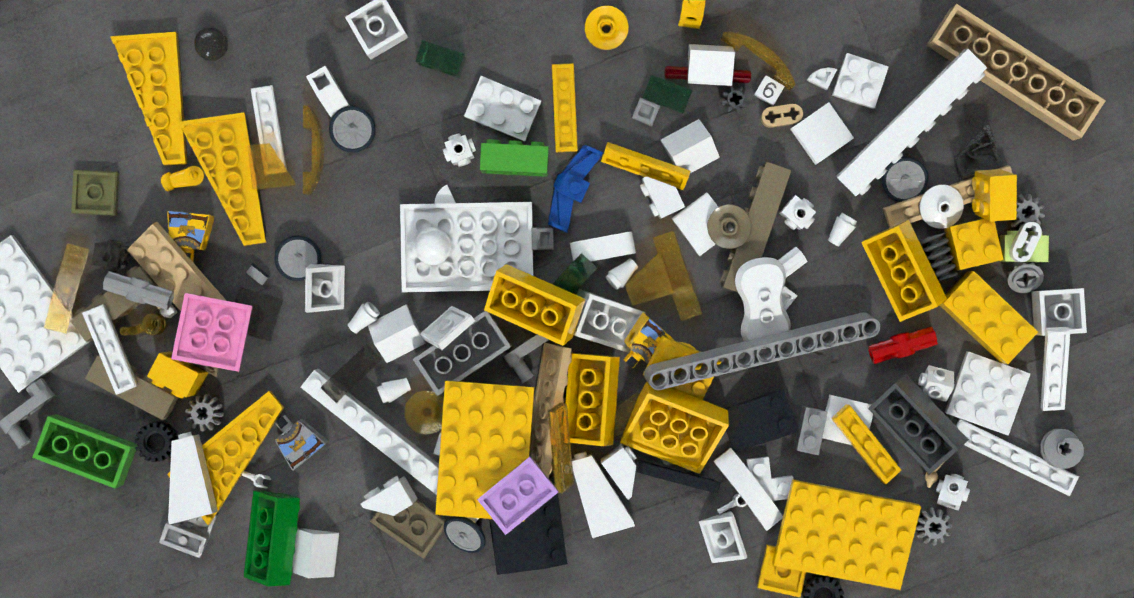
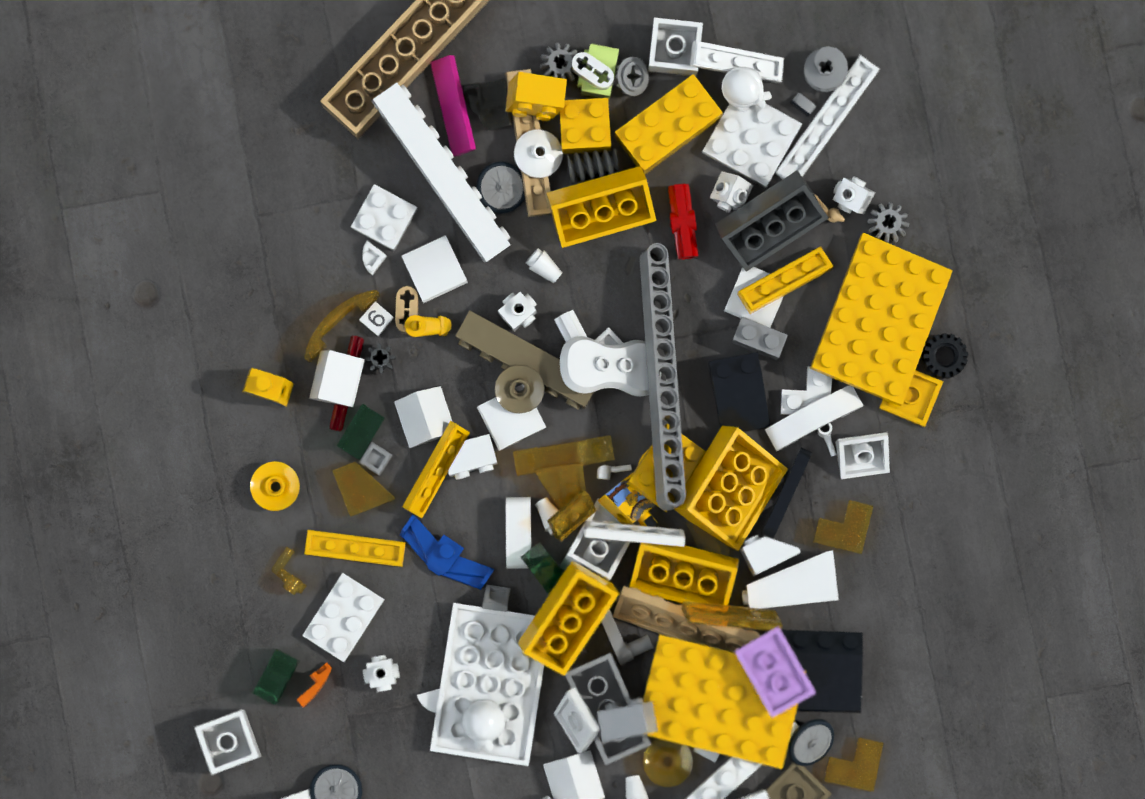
camera: 85 degrees left, 5 degrees down
(446, 97) = (319, 678): none -> orange slope
(449, 582) = (860, 772): none -> clear yellow plate
(452, 372) = (627, 721): none -> light grey brick
(514, 158) = (402, 612): bright green brick -> none
(525, 57) = (292, 583): none -> clear yellow plate
(616, 103) = (360, 489): none -> clear yellow wing
(619, 350) = (634, 533): none -> white tile
(625, 292) = (571, 515): none -> clear yellow plate
(650, 536) = (849, 535): none -> clear yellow plate
(669, 314) = (604, 471): none -> white hand
(770, 134) = (425, 326): none -> yellow piece
(971, 123) = (453, 105): none -> dark pink tile
(1025, 433) = (803, 104): none -> light grey piece
(1033, 379) = (744, 88): none -> white hat

